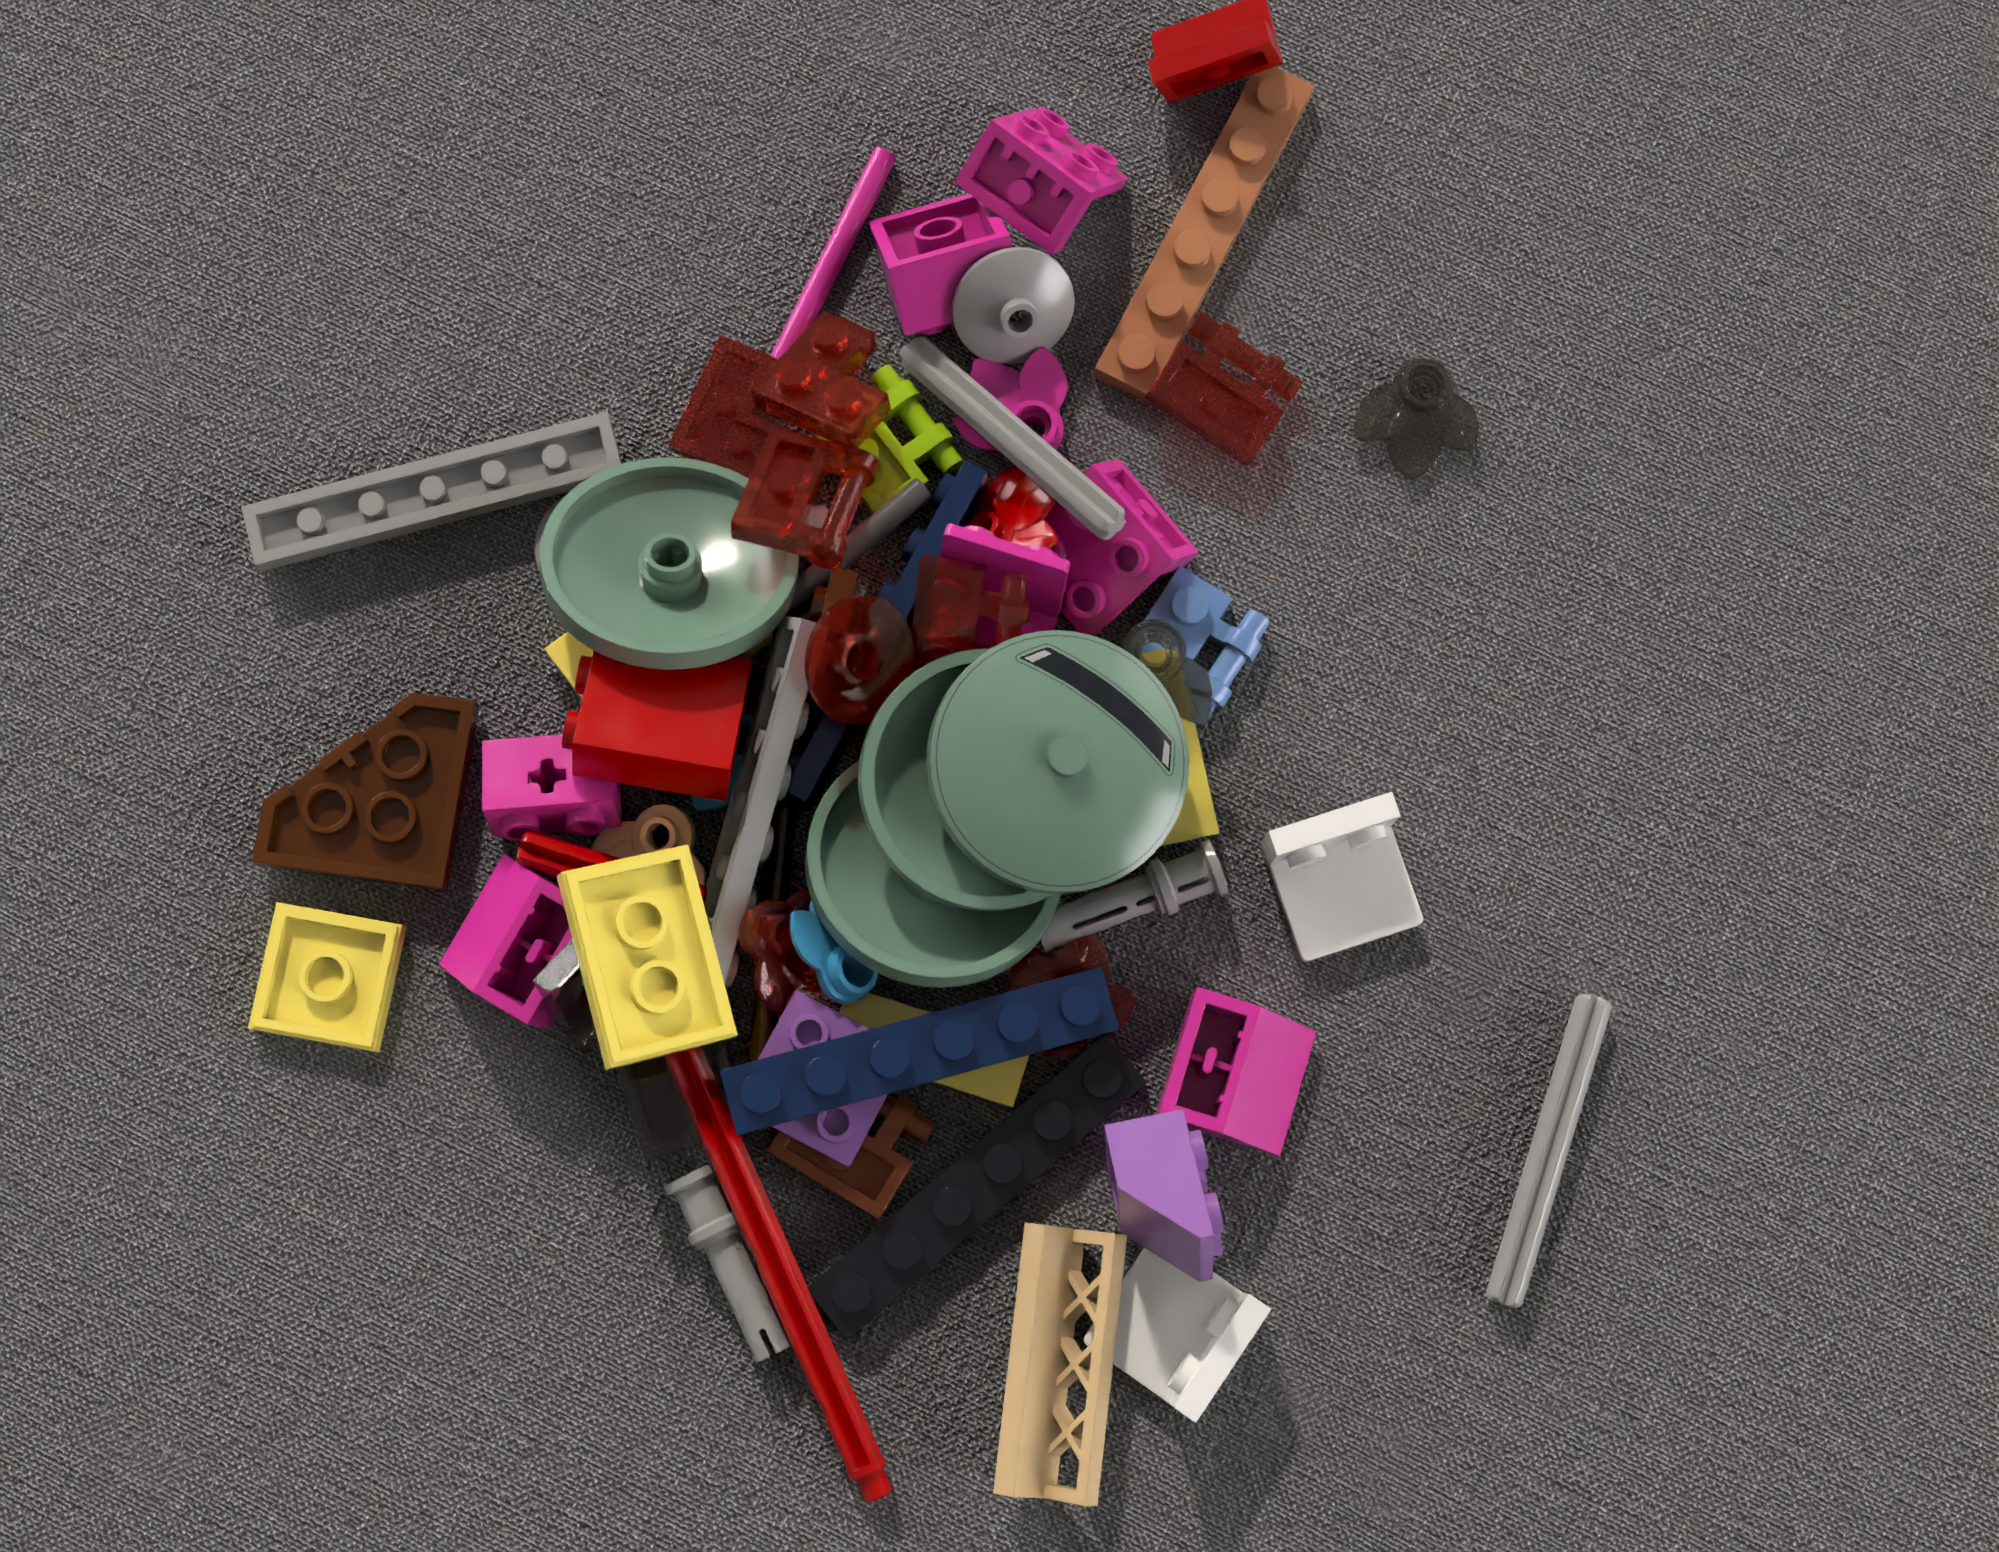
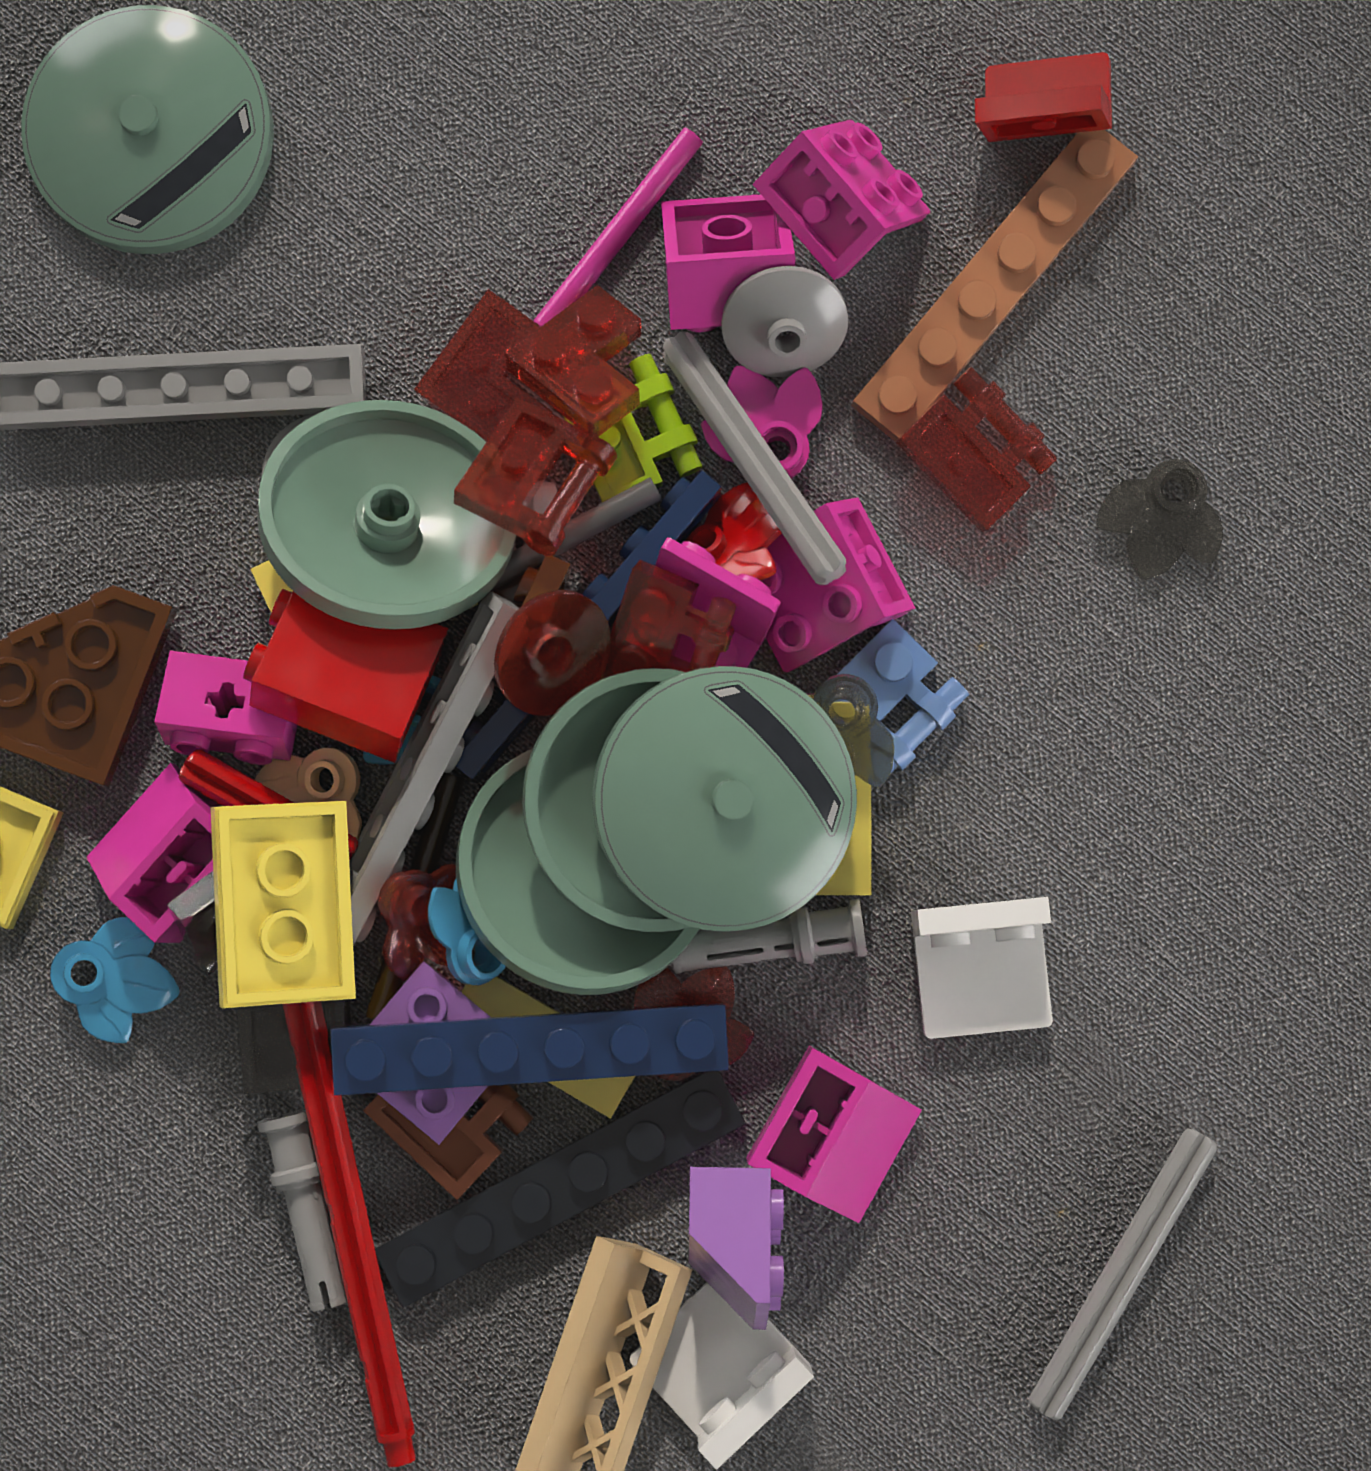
camera: 15 degrees right, 5 degrees up
(356, 255) = (147, 129): none -> sand green dish
(501, 1077) = (123, 982): none -> dark azure plate

